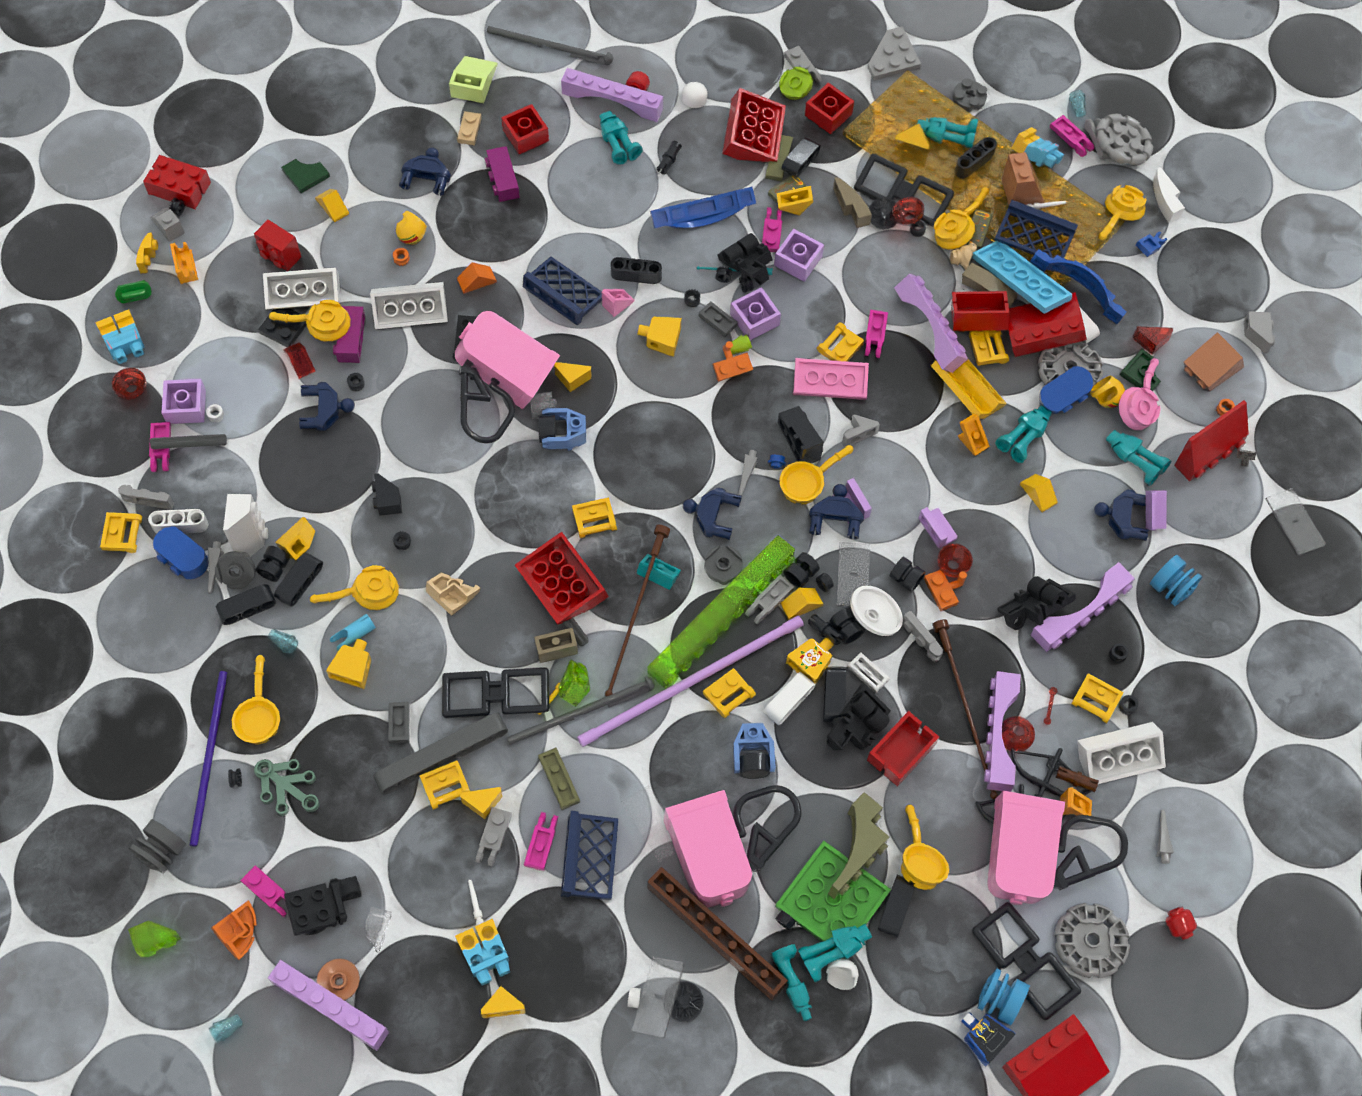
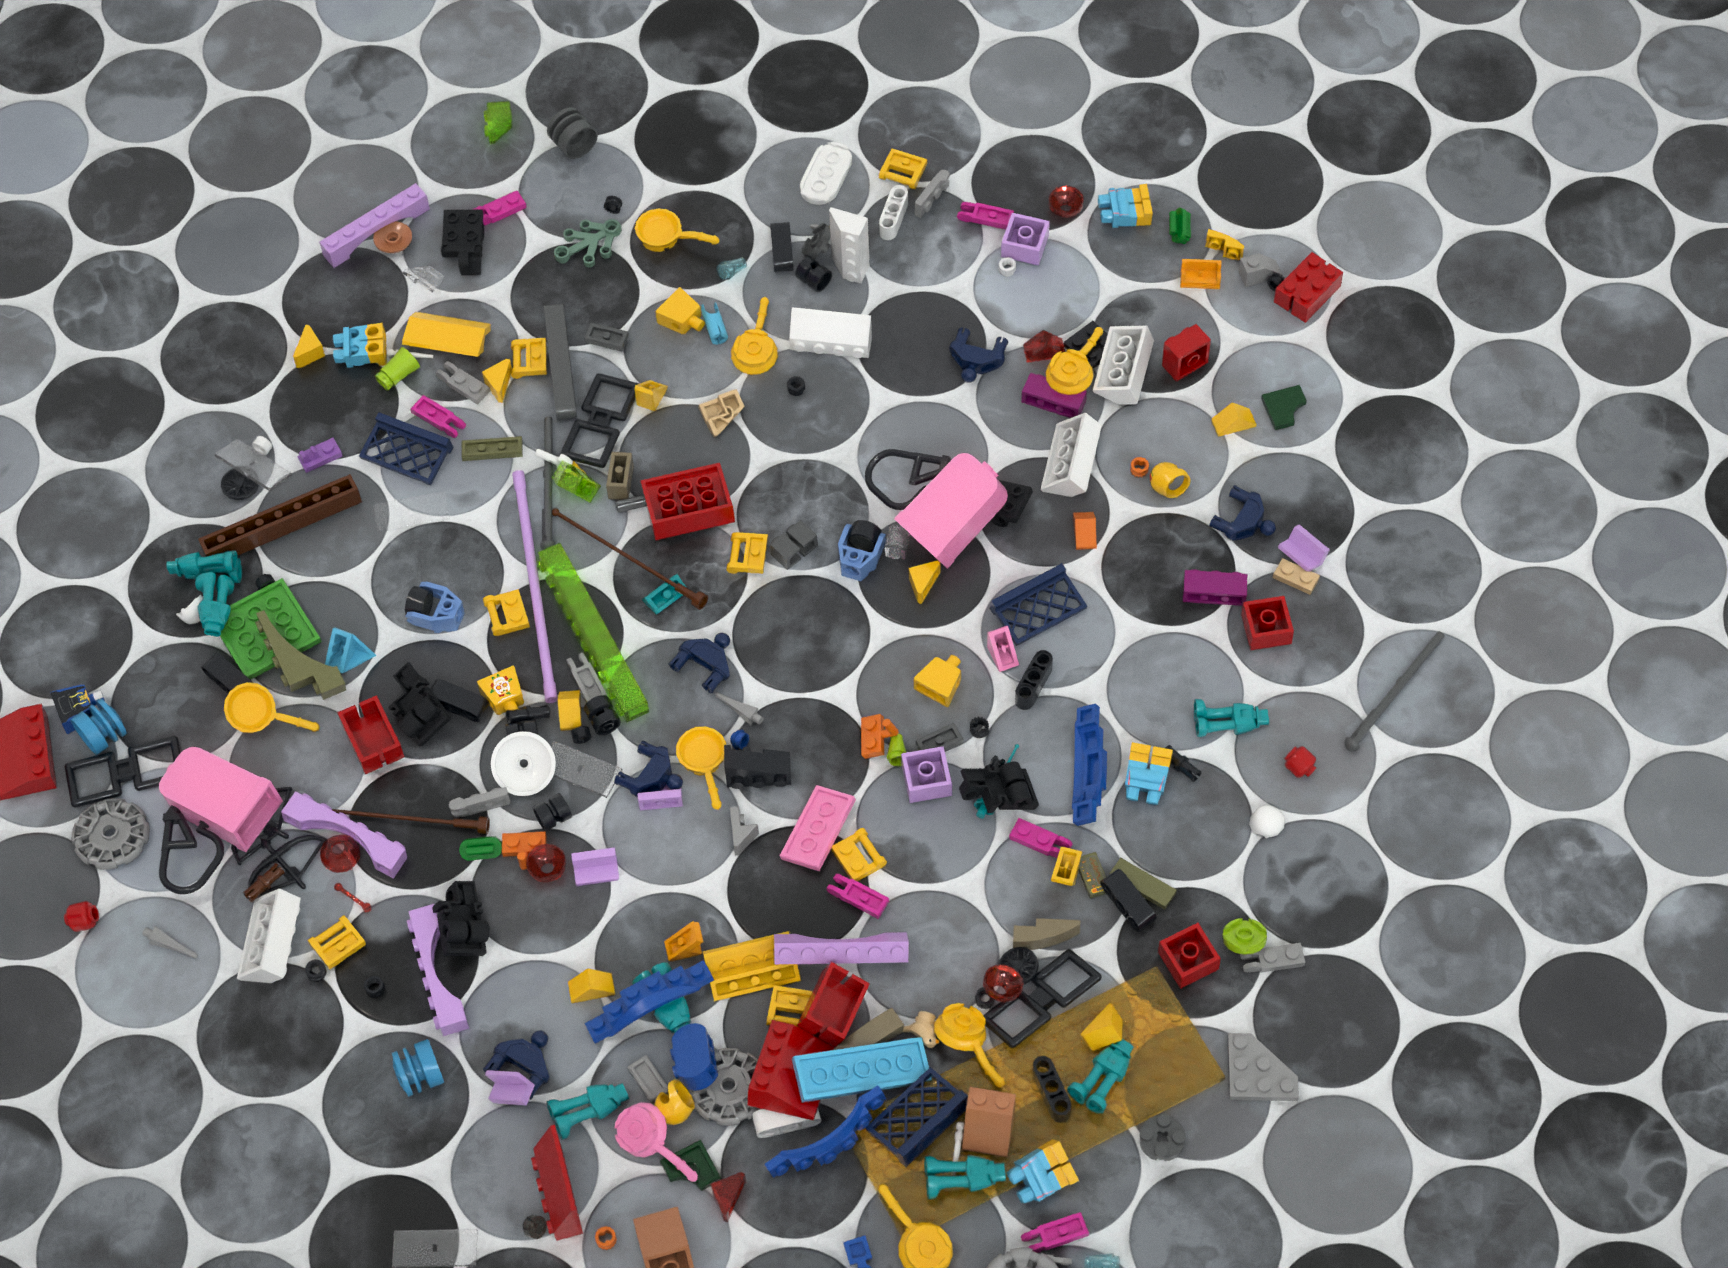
camera: 115 degrees right, 5 degrees down
(141, 600) = (826, 173): none -> white tile
(180, 553) = (863, 201): blue brick -> none
(188, 441) = (978, 237): dark grey axle -> none
(208, 759) = (645, 192): dark purple piece -> none
(224, 1028) = (395, 152): clear light blue cone -> none
(237, 930) = (474, 180): orange brick -> none
(297, 539) = (829, 296): yellow slope -> none
(298, 579) = (788, 290): black beam -> none
(341, 524) = (830, 332): none -> white slope
(357, 376) = (999, 394): black bush -> none
(387, 496) = (849, 383): black slope -> none
(443, 874) = (446, 334): none -> yellow slope
(444, 125) = (1304, 549): none -> lavender panel
(451, 657) = (649, 394): none -> yellow slope
(472, 79) = (1365, 594): yellowish green slope -> none
(502, 902) = (397, 369): none -> lime plant
(556, 705) = (552, 458): none -> white bar
(578, 486) = (797, 539): none -> dark grey piece
(622, 938) = (319, 455): none -> medium lavender plate
(643, 103) = (1271, 750): lavender arch -> none
(689, 172) = (1147, 779): none -> medium azure hips
(712, 846) = (356, 538): bright pink piece -> none
(723, 554) = (647, 661): dark grey plate -> none
(753, 127) = (1189, 865): red slope -> none
(789, 698) = (472, 657): white beam -> none
(798, 255) = (988, 846): lavender brick -> none
(827, 815) = (346, 651): none -> medium azure slope
(862, 677) = (470, 745): white tile -> none
(960, 622) = (480, 848): none -> green piece
(982, 222) = (953, 1060): olive tile -> none
(1037, 436) = (647, 996): none -> blue piece
(1061, 184) = (978, 1174): none -> teal piece
(1076, 803) = (237, 868): light orange slope -> none
(1091, 425) = (647, 1078): none -> light grey tile

